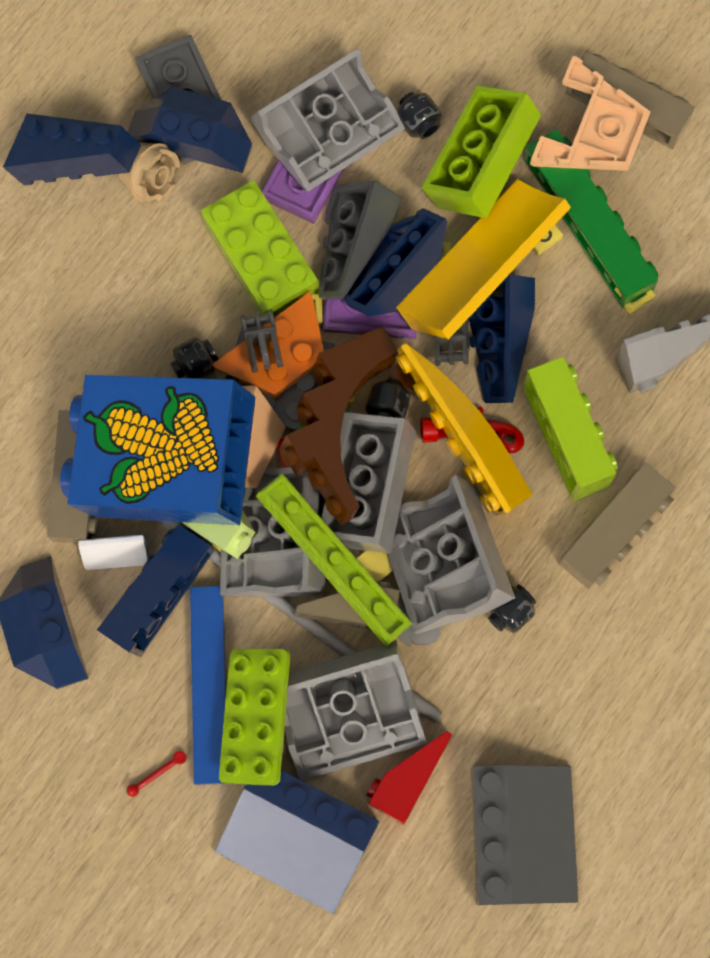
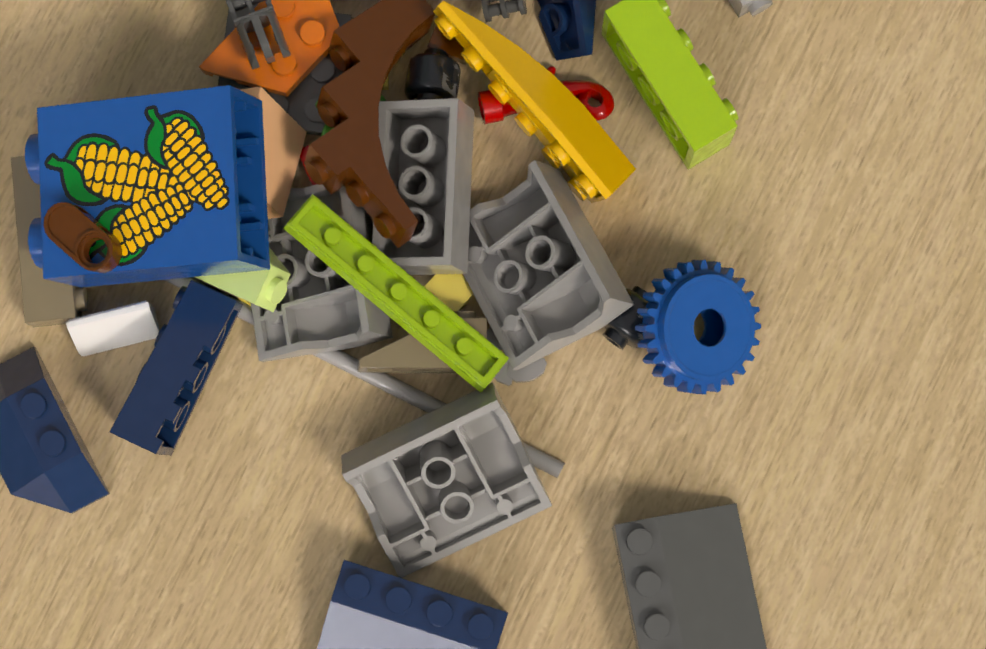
camera: 10 degrees left, 5 degrees up
(97, 472) = (76, 231): none -> reddish brown piece
(178, 758) = (242, 575): red hinge -> none
(194, 359) = (174, 63): black head -> none
(207, 681) = (264, 477): blue tile -> none
(254, 717) = (329, 508): lime bracket -> none
(403, 784) = (532, 559): red slope -> none
(539, 620) = (670, 320): none -> blue gear
(617, 525) = (749, 189): dark tan brick -> none

